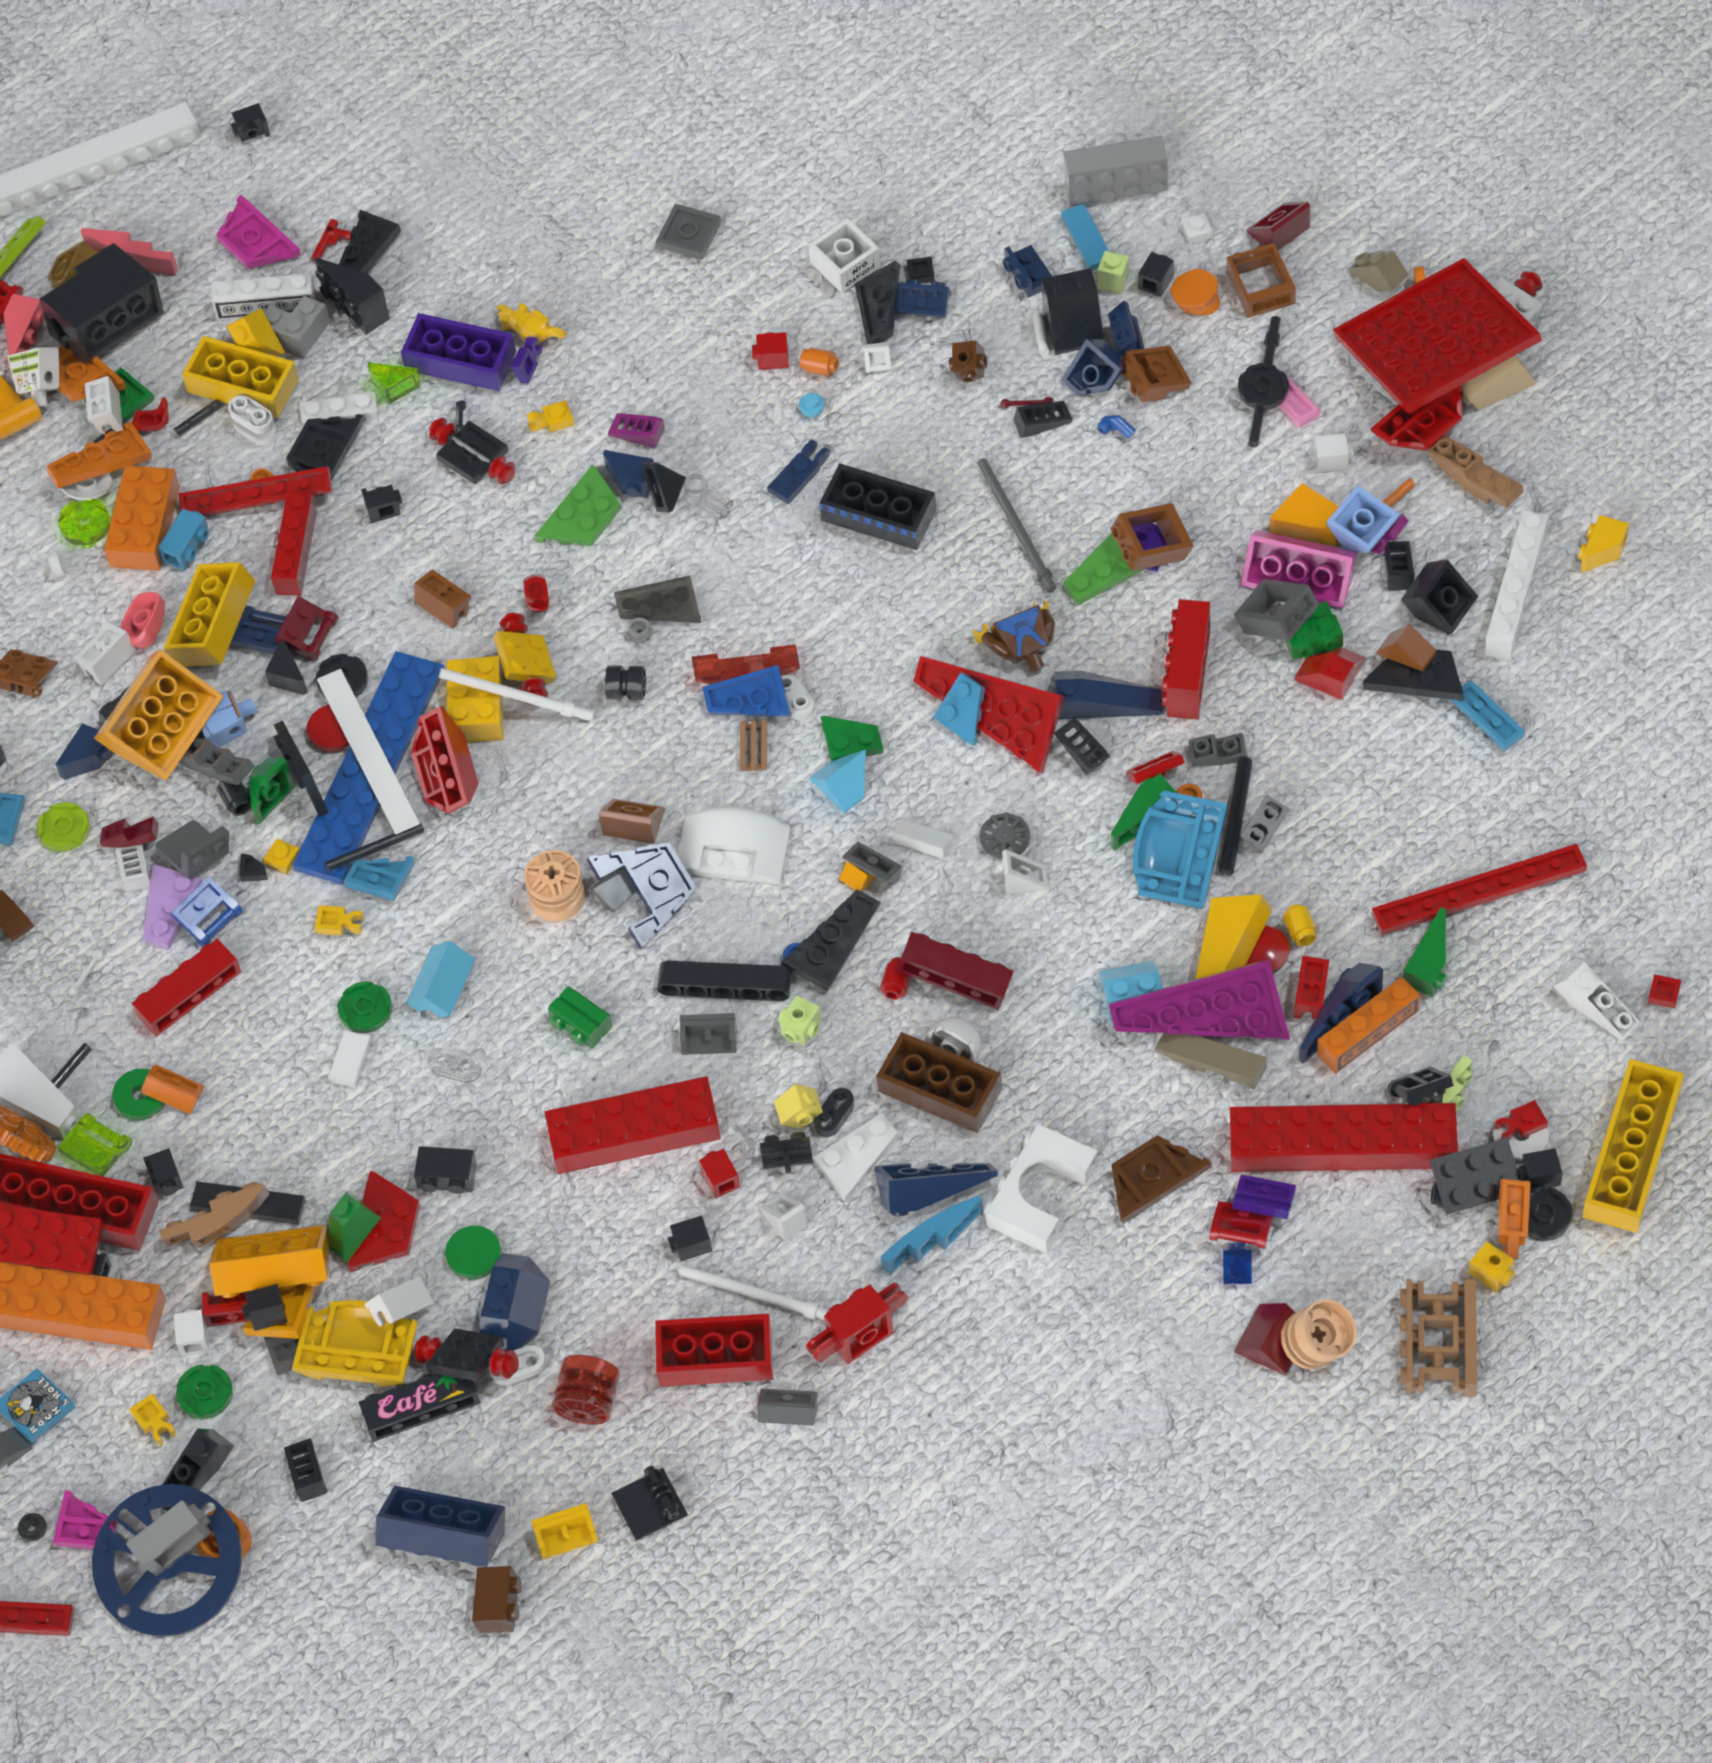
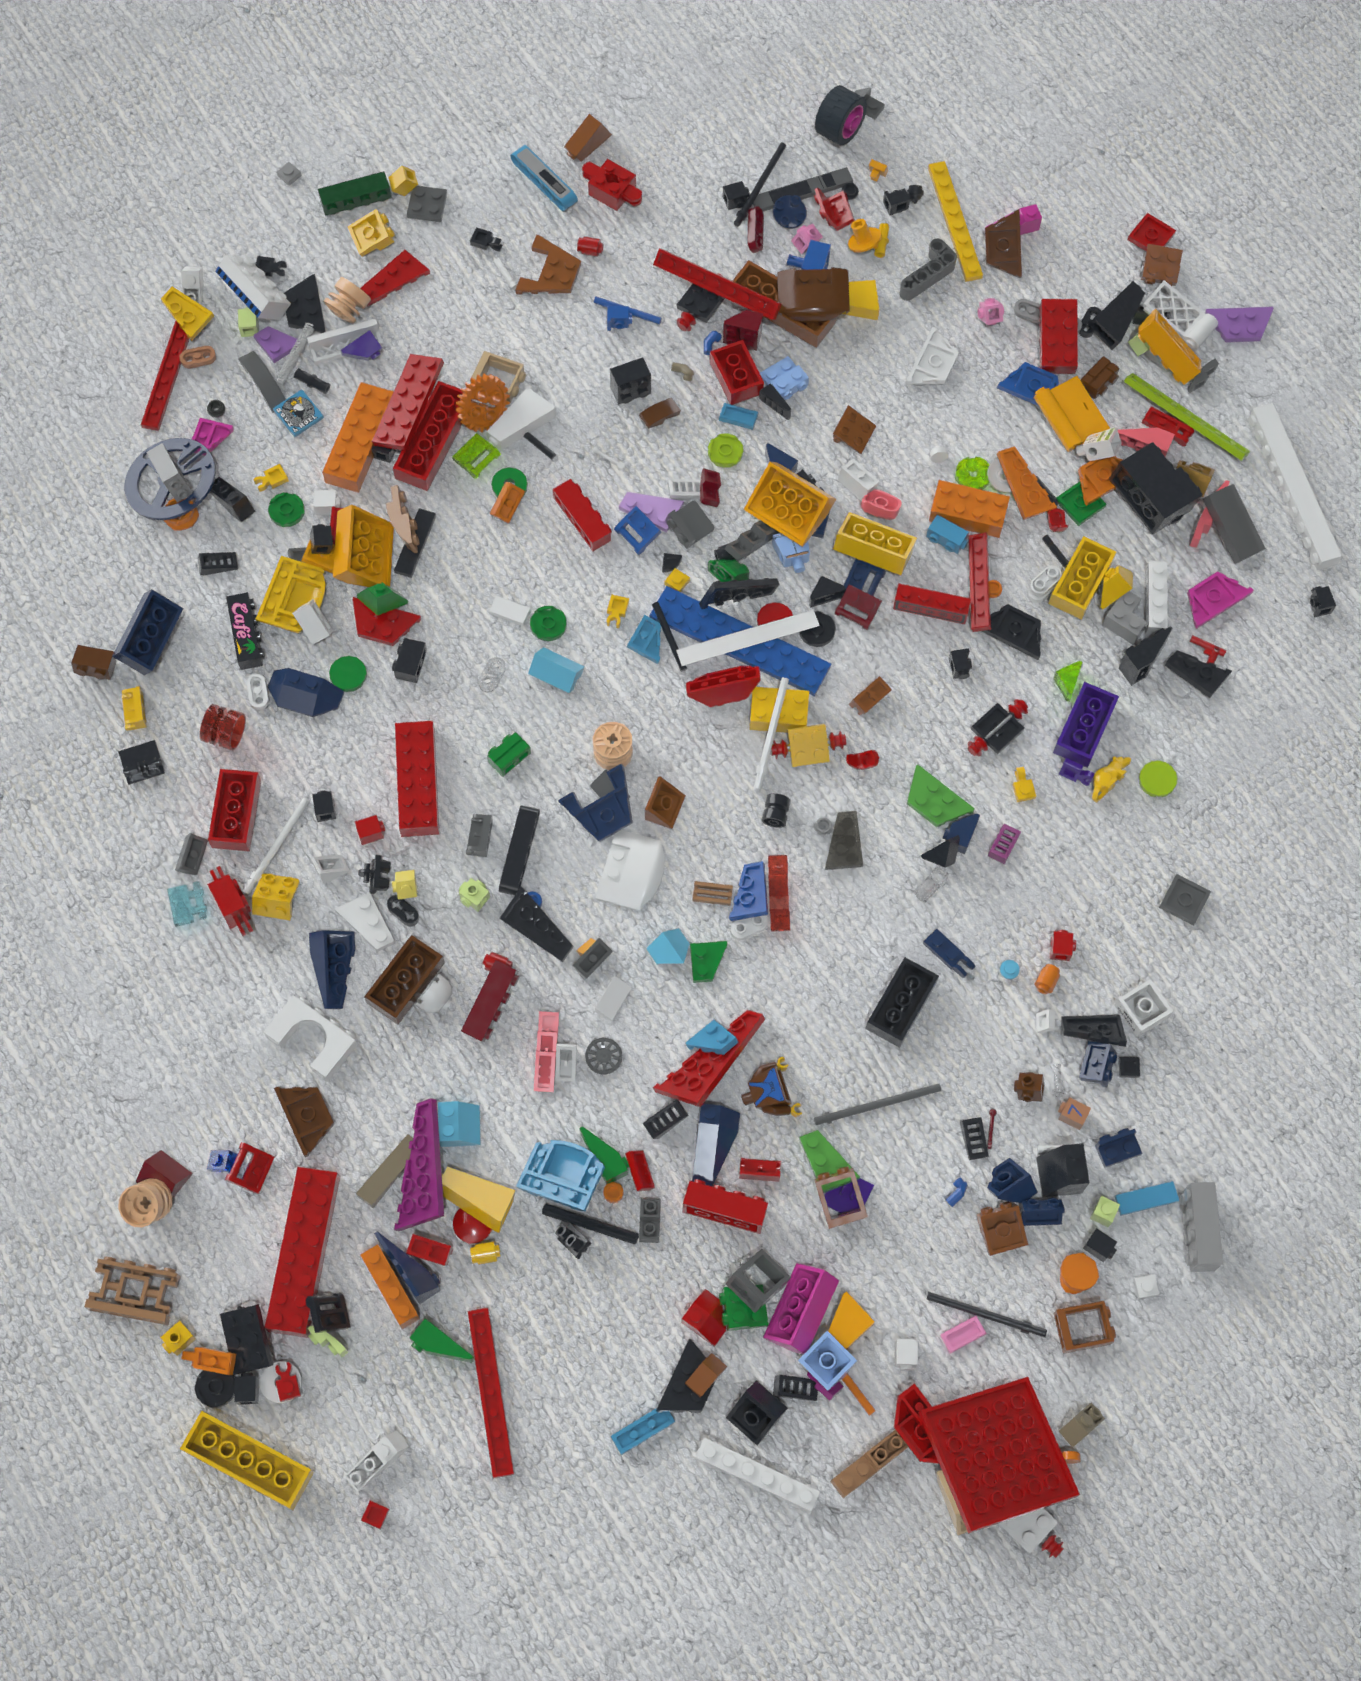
camera: 90 degrees right, 10 degrees up
(103, 404) = (1066, 487): white hinge -> none
(147, 219) = (1234, 523): none -> dark grey slope
(163, 1172) = (444, 494): black brick -> none
(341, 406) = (1050, 644): white plate -> none
(460, 405) = (1043, 726): black hinge -> none
(466, 1355) = (264, 657): black plate -> none
(523, 276) = (1158, 779): none -> lime tile
(835, 1272) = (274, 896): none -> yellow bracket
(867, 1401) = (181, 905): none -> clear light blue plate
(939, 1229) = (293, 965): dark azure slope -> none
(993, 315) = (1073, 1113): none -> nougat brick
(1012, 902) = (546, 1051): none -> coral slope
(1127, 637) = (760, 1169): none -> red hinge
(1263, 386) = (976, 1310): black tile -> none
(1264, 1196) = (268, 1188): dark purple plate -> none
(1282, 224) = (1139, 1352): dark red slope -> none
(1605, 542) = (787, 1556): yellow slope -> none

